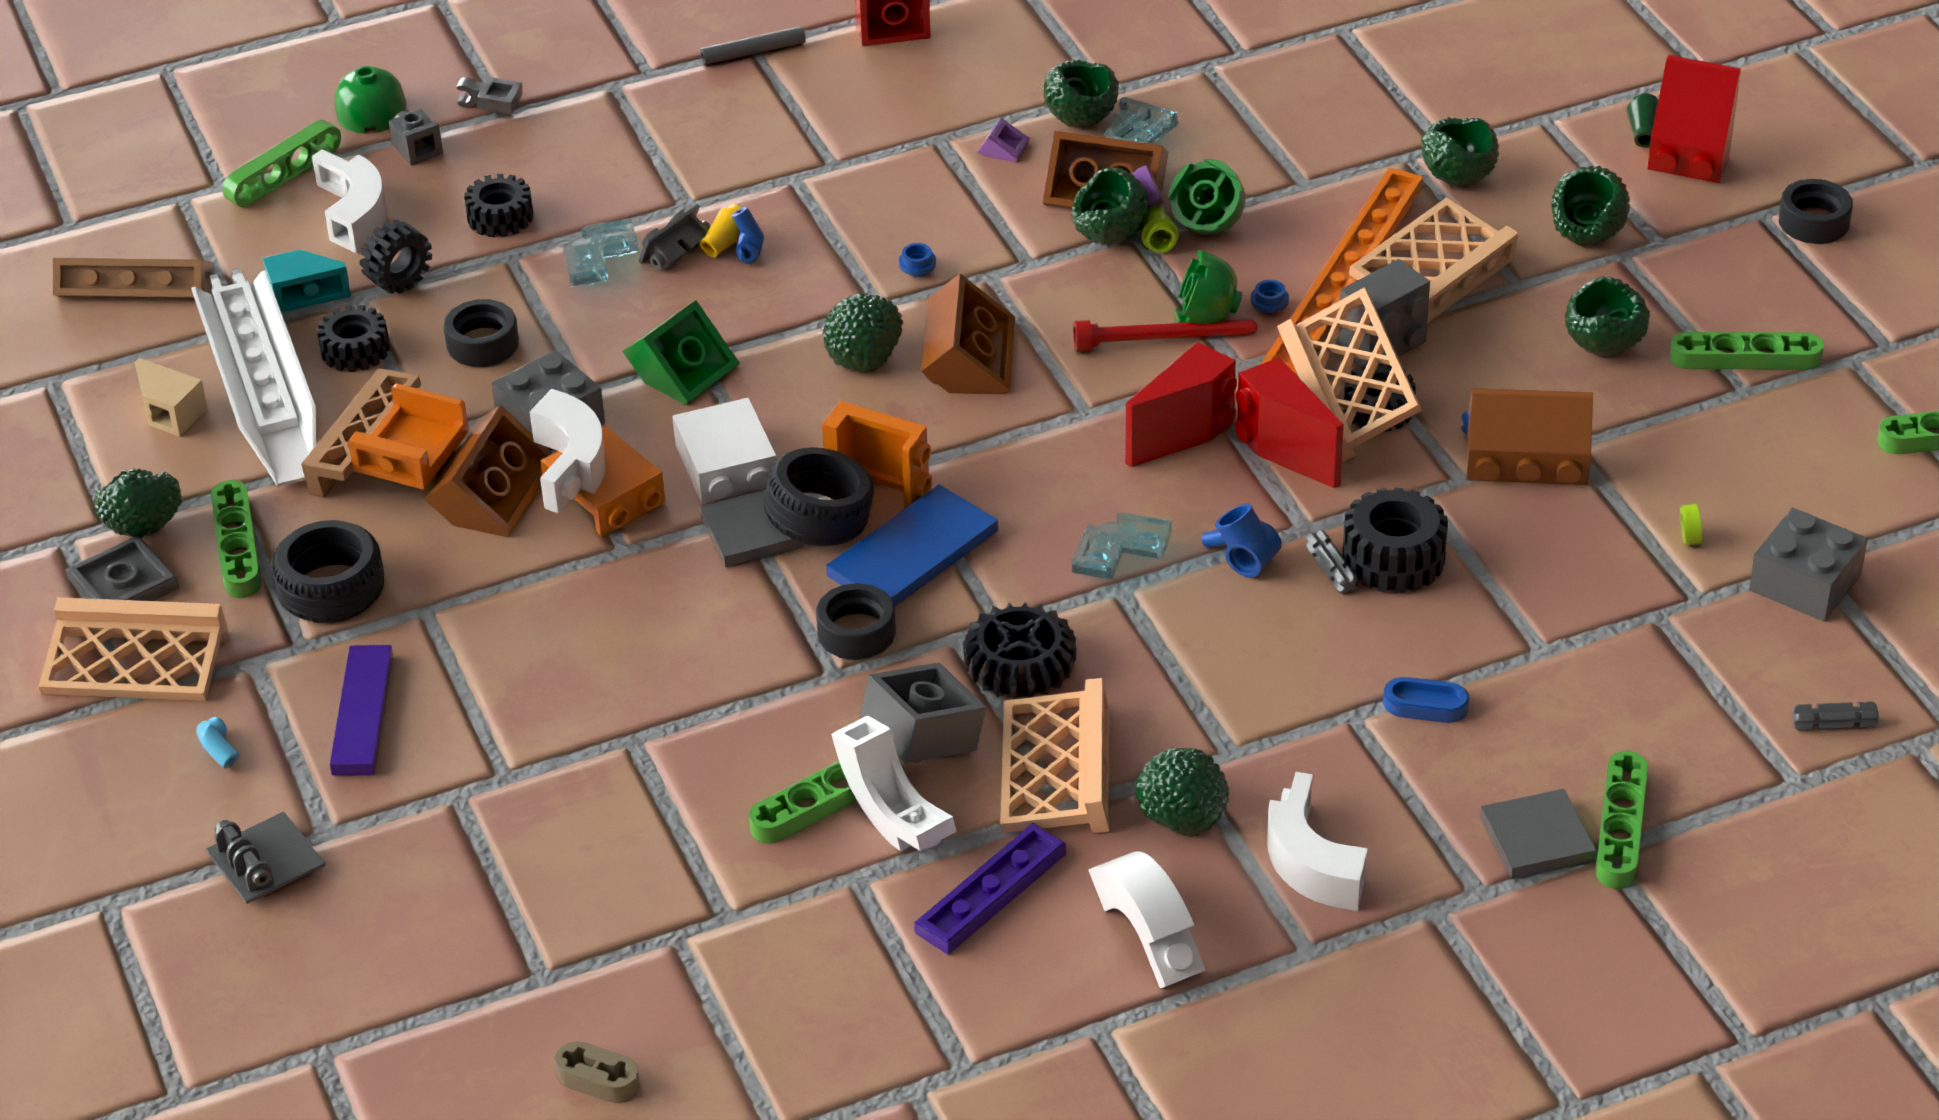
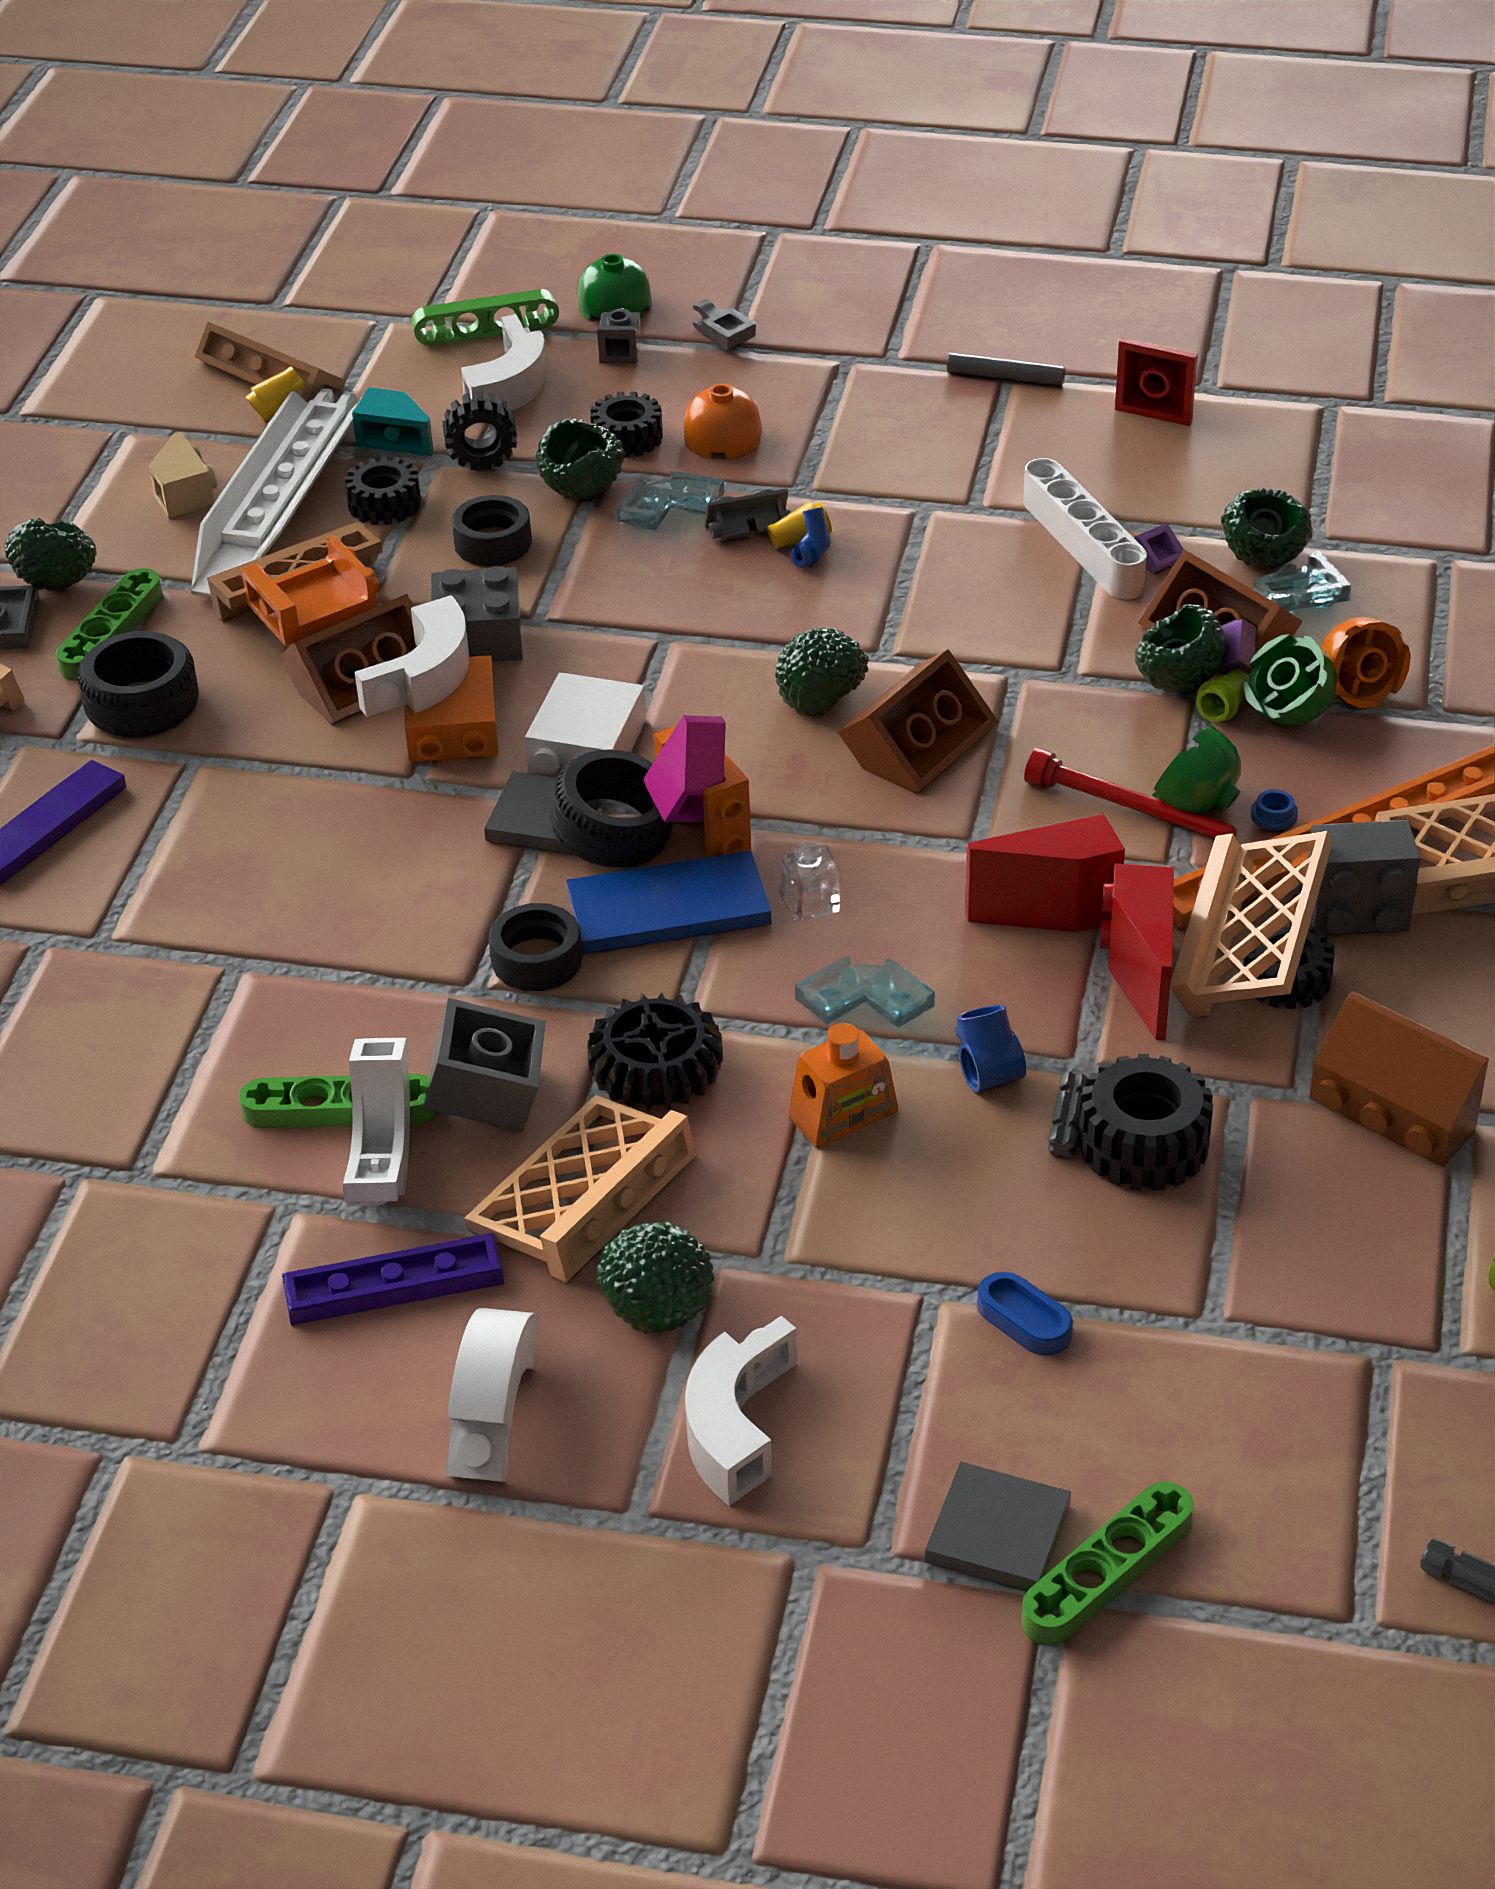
camera: 35 degrees right, 0 degrees up
(173, 297) = (271, 393): none -> yellow cone
(504, 246) = (579, 458): none -> dark green hair
(576, 174) = (721, 422): none -> orange cylinder
(682, 354) = (640, 622): green slope -> none
(876, 439) = (688, 766): none -> dark pink slope
(917, 259) = (954, 626): blue plate -> none
(941, 146) = (1085, 529): none -> white beam
(1009, 486) = (807, 870): none -> clear brick
(1183, 595) = (841, 1086): none -> orange torso
(1245, 155) = (1367, 660): none -> orange cylinder

